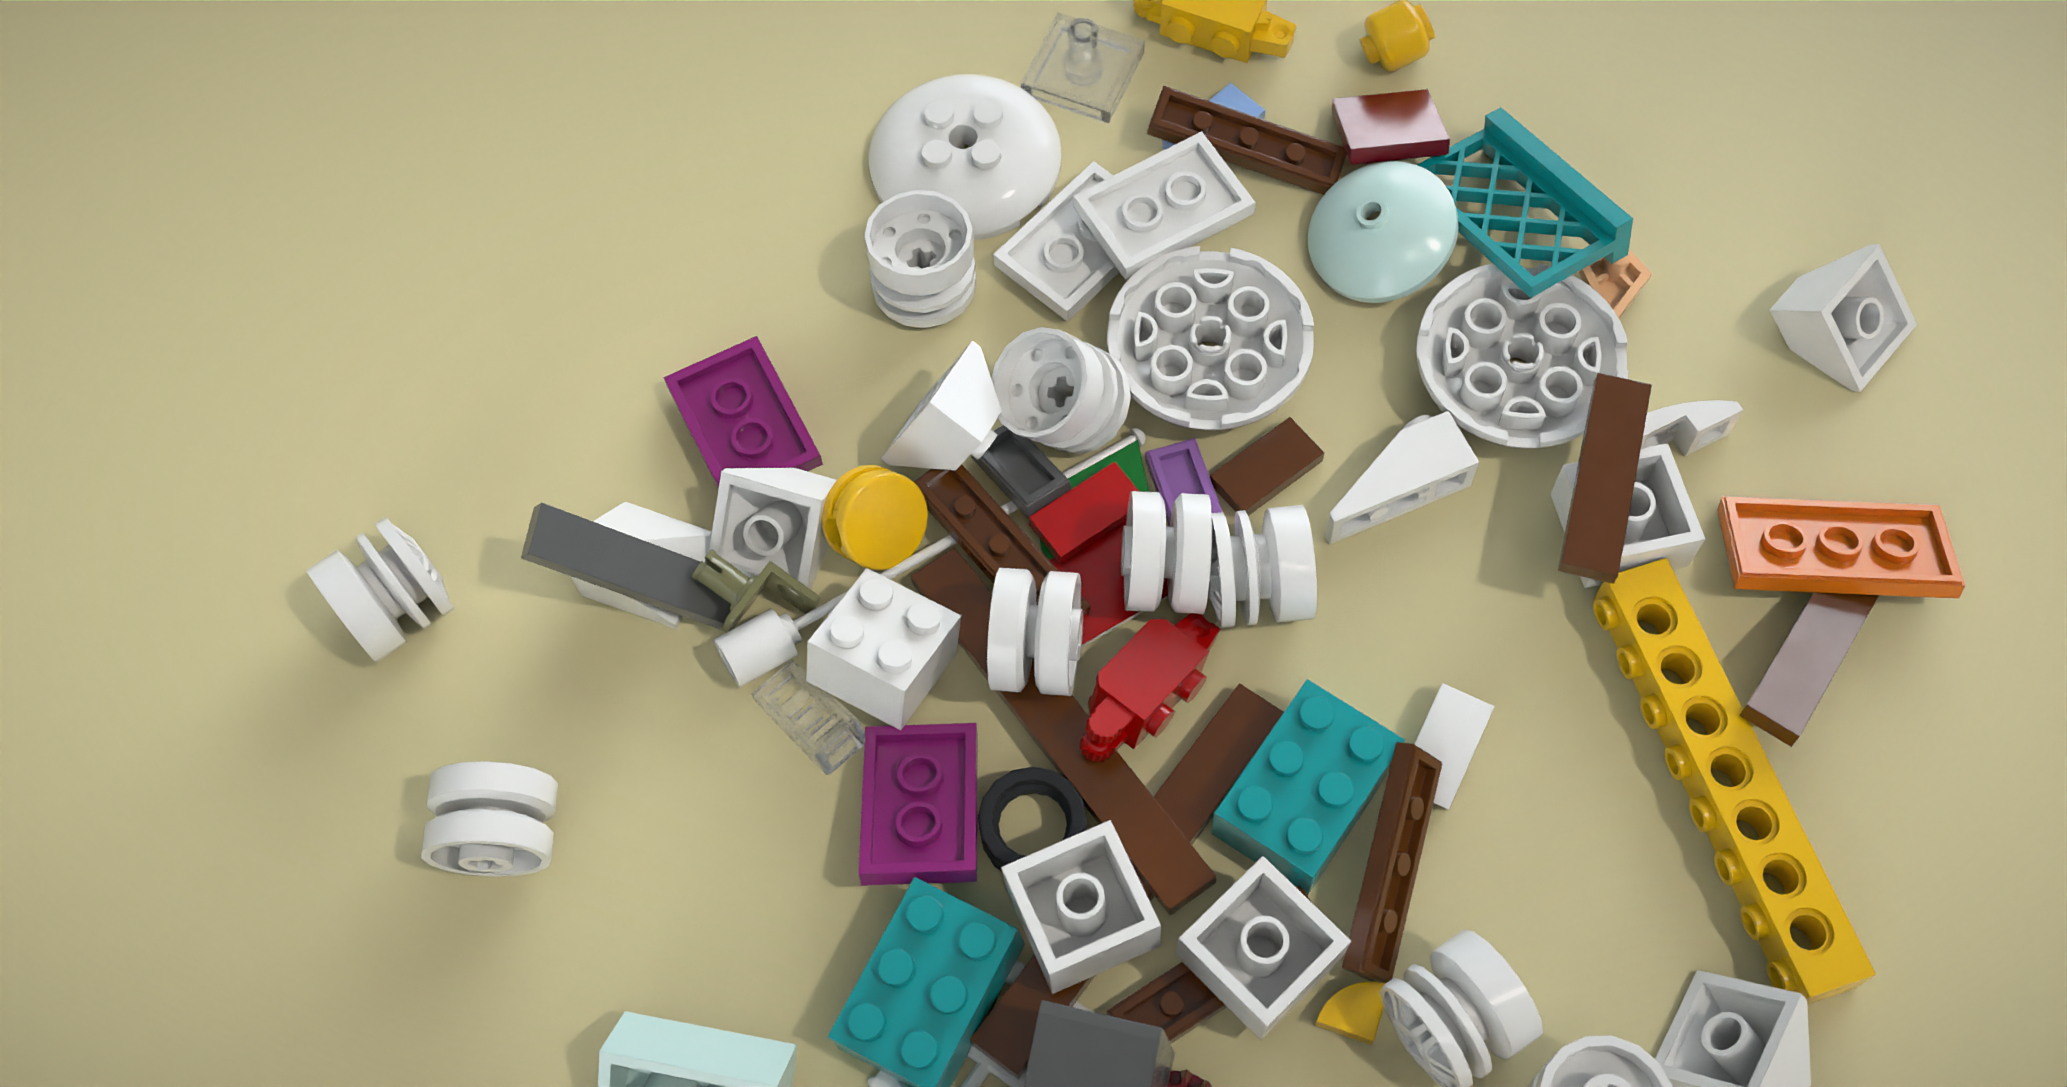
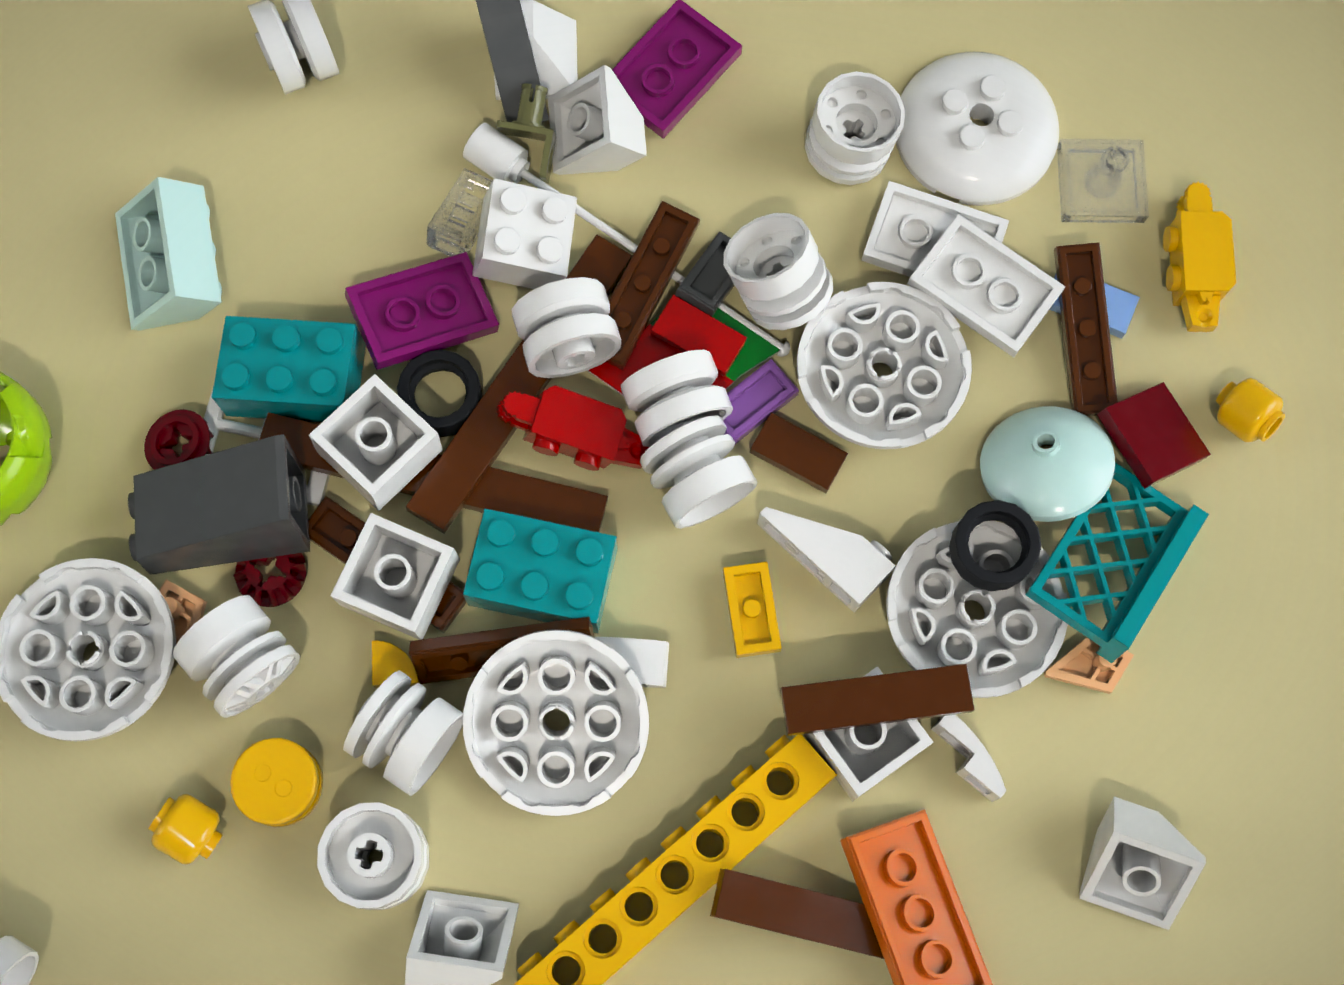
camera: 60 degrees right, 10 degrees up
(874, 517) = (624, 187): yellow head -> none
(950, 418) = (721, 203): white slope -> none
(1435, 581) = (751, 609): none -> yellow plate
(1478, 269) = (1013, 517): none -> black tyre
(1553, 822) = (546, 767): none -> white brick

